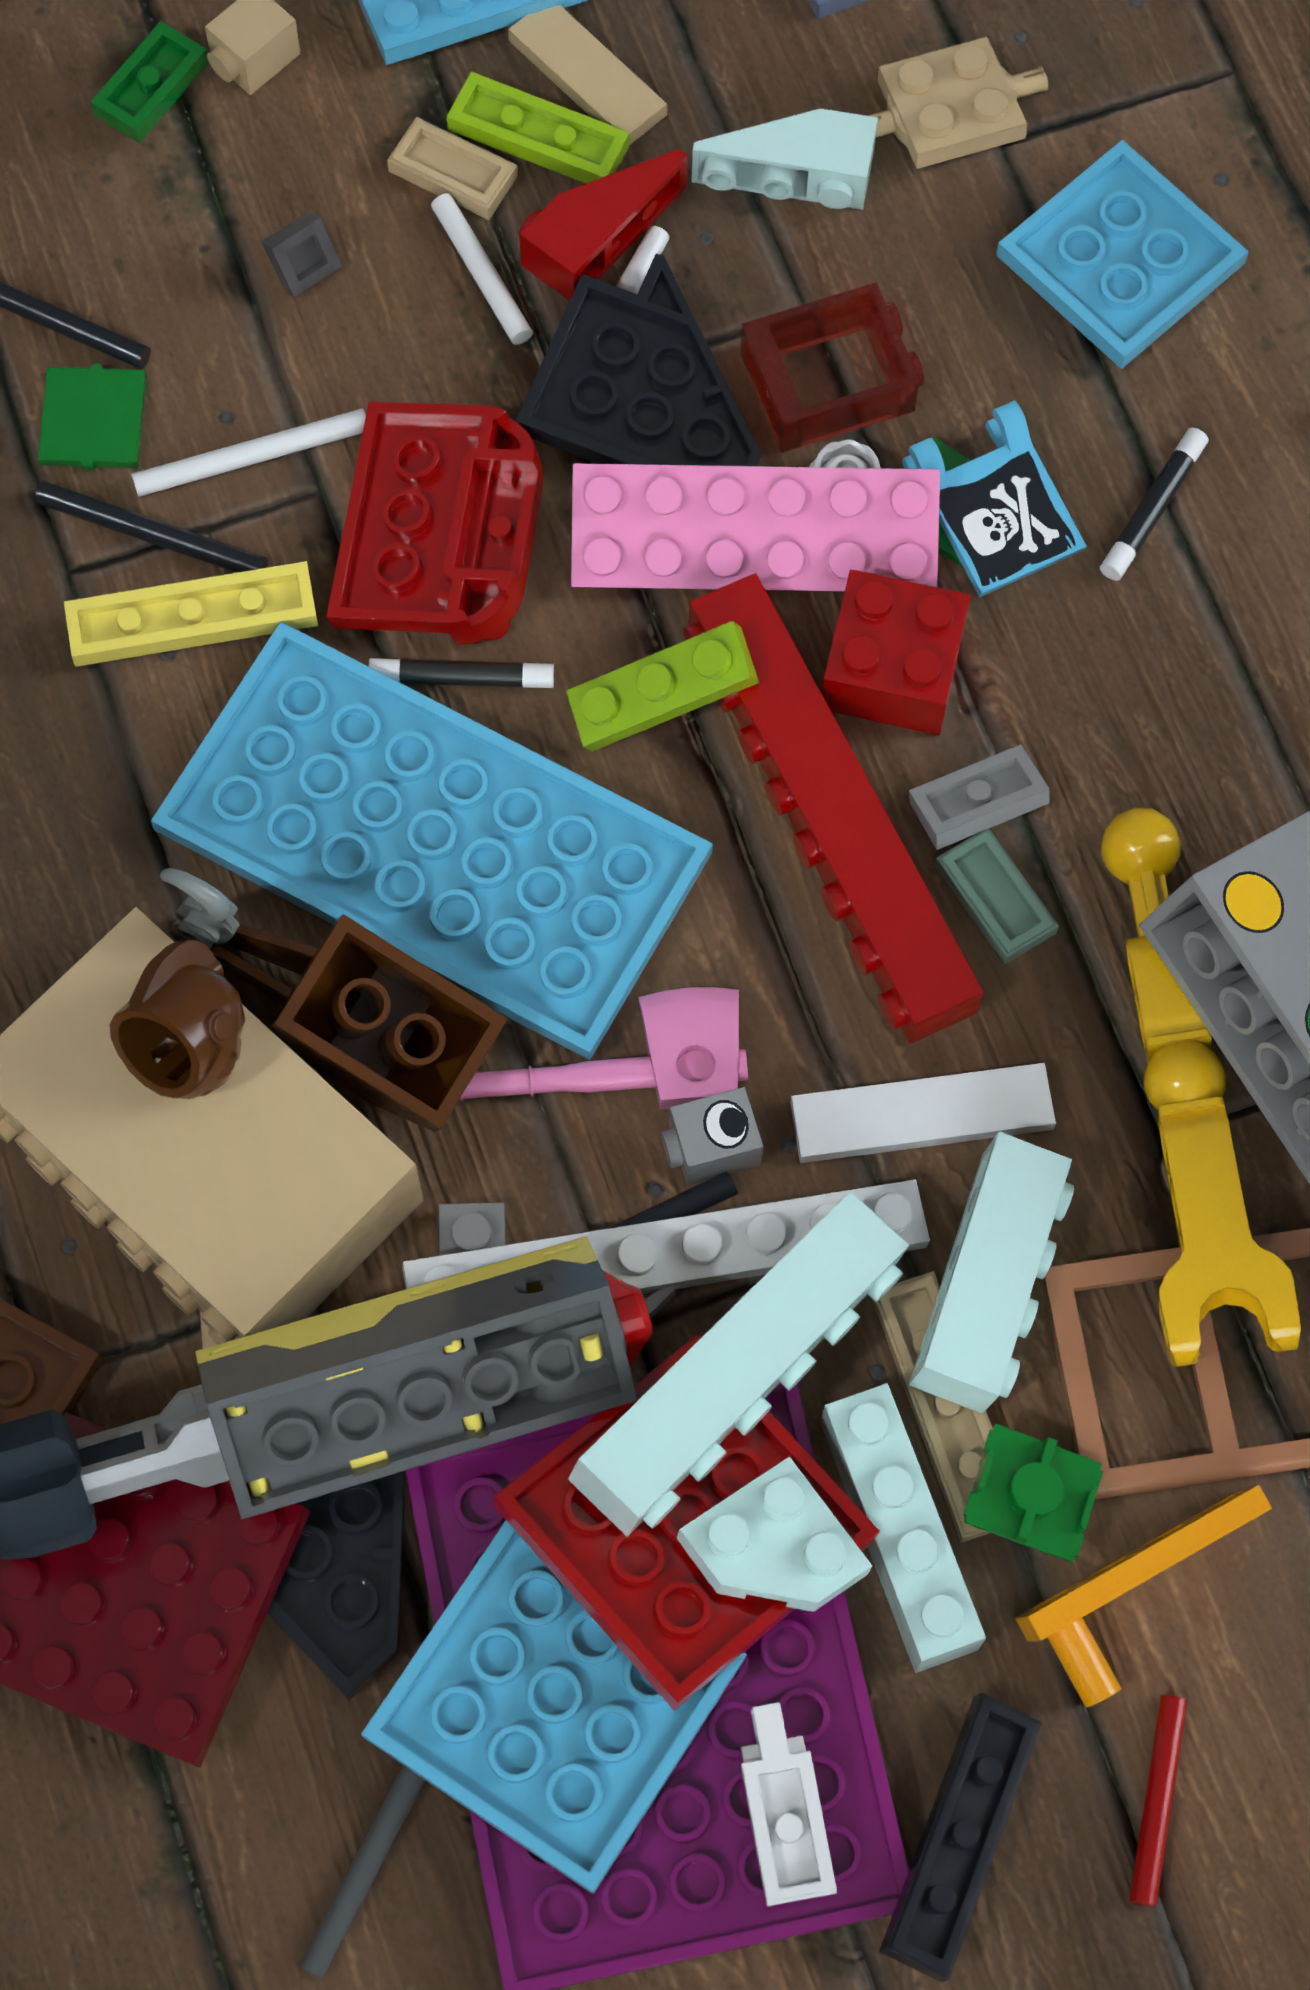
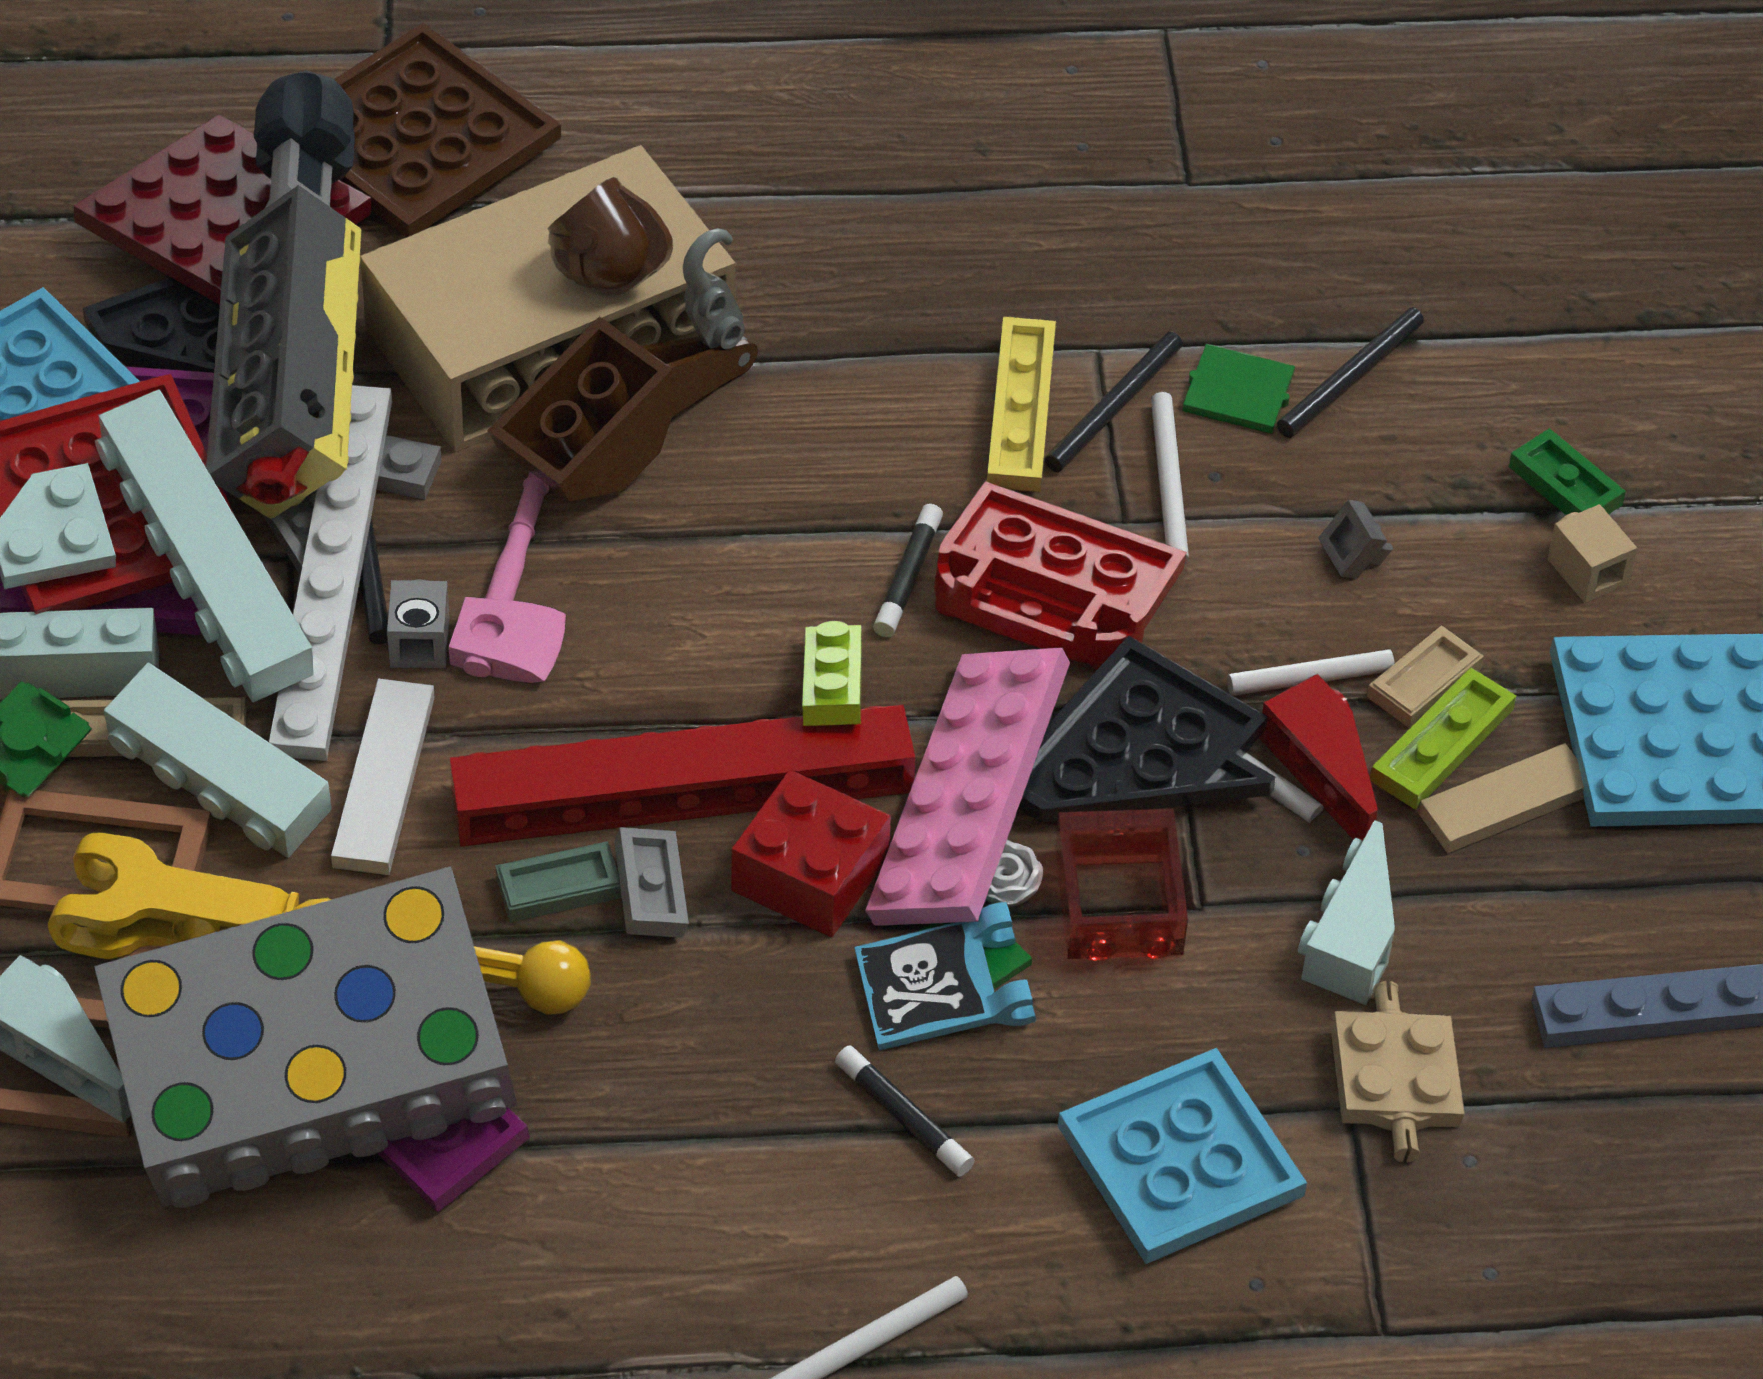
camera: 105 degrees right, 20 degrees down
(434, 838) = (755, 514): medium azure plate -> none

